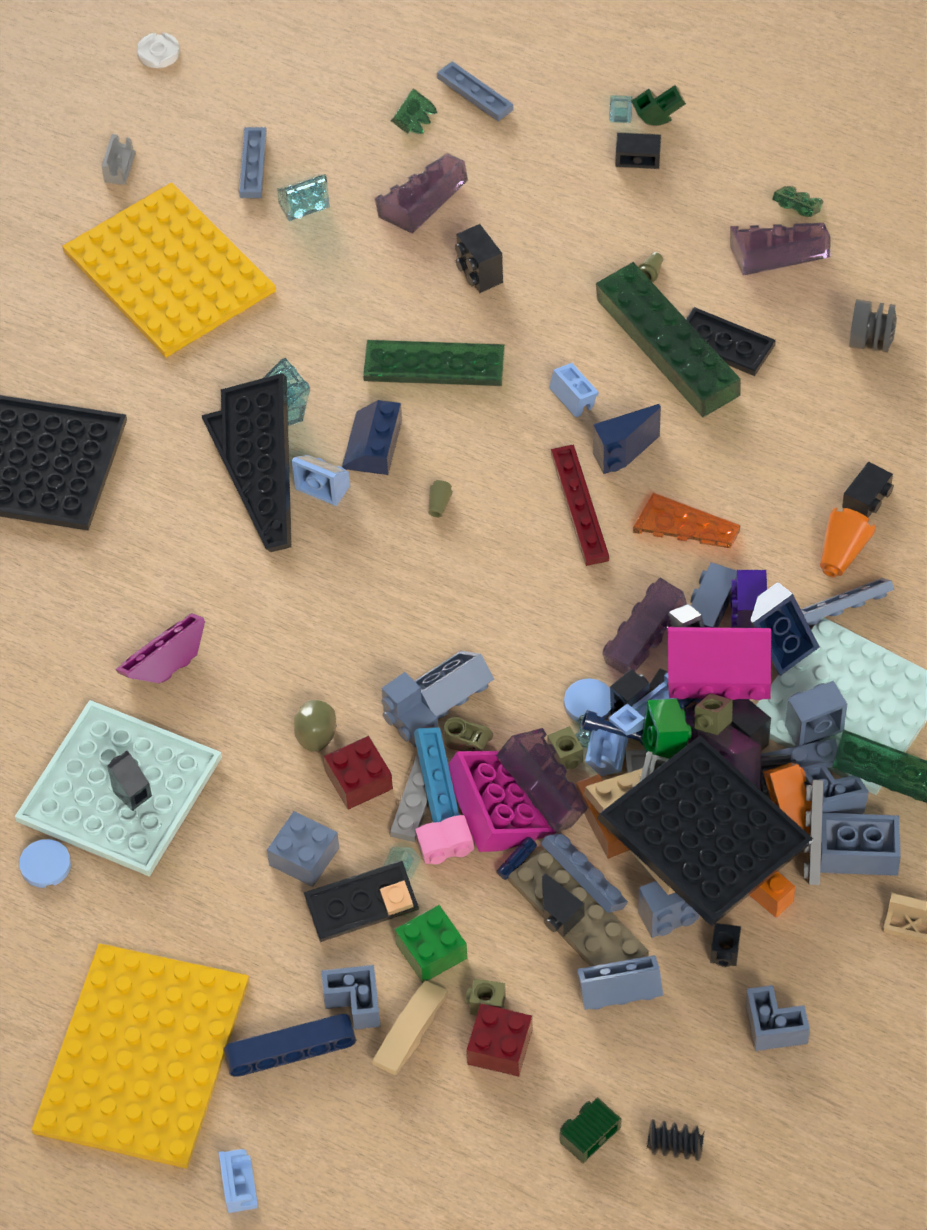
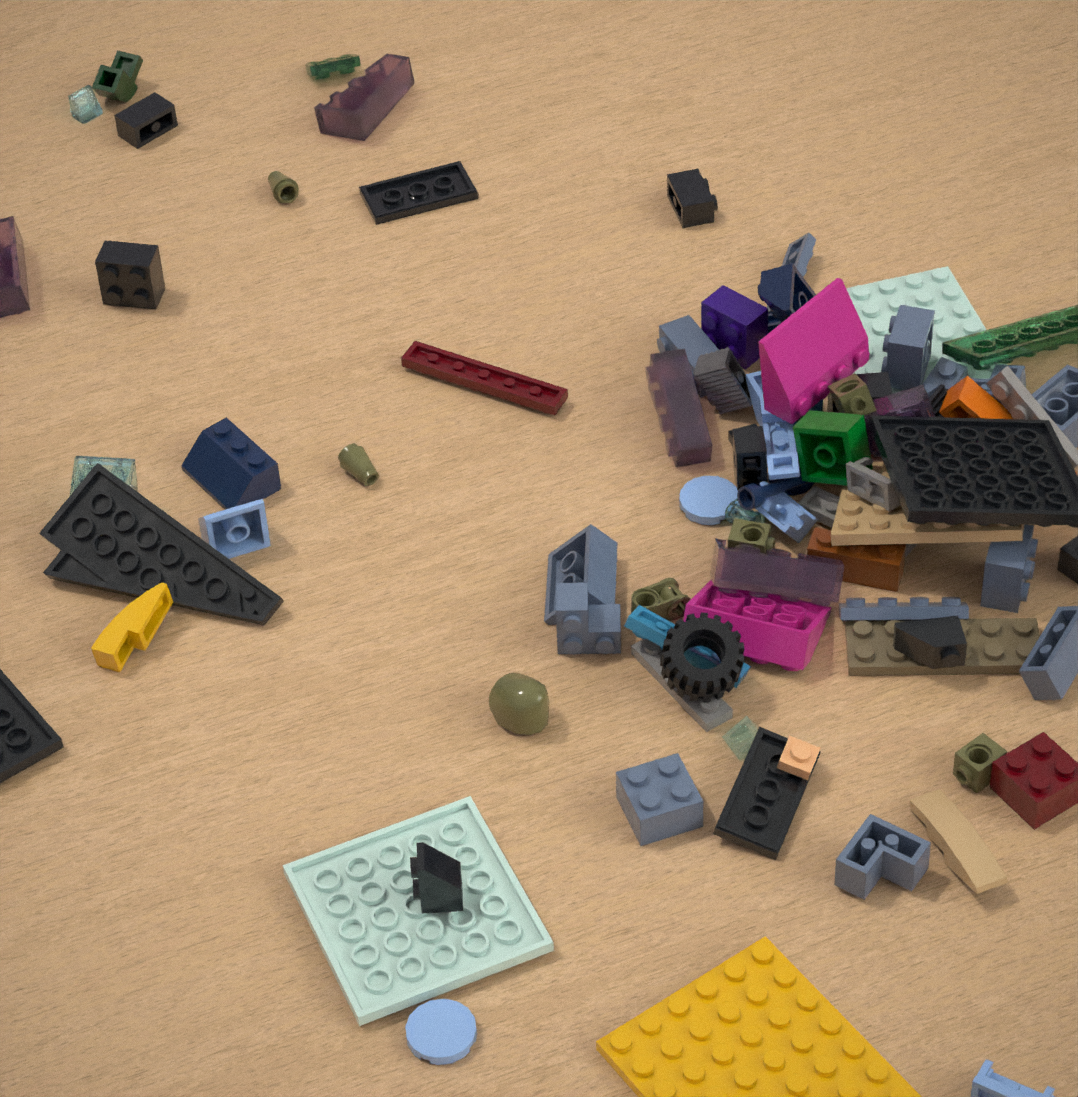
camera: 50 degrees left, 10 degrees down
(166, 652) = (295, 763): magenta wedge -> none
(198, 491) = (132, 628): none -> yellow slope
(289, 1045) = (884, 952): dark blue beam -> none
(358, 772) = (613, 704): dark red brick -> none
(403, 779) = (709, 634): none -> black tyre
(431, 943) = (874, 767): green brick -> none
(434, 362) = (198, 379): clear green plate -> none
(444, 839) = (761, 688): bright pink brick -> none
(516, 858) = (834, 651): dark blue axle -> none
(573, 389) = (352, 307): light blue hinge -> none
(625, 437) = (452, 304): dark blue slope -> none
(668, 339) = (376, 217): clear green brick -> none
(672, 518) = (578, 328): clear orange wing -> none
(844, 540) = (729, 235): orange cone -> none
(872, 325) = (528, 92): dark grey wheel -> none

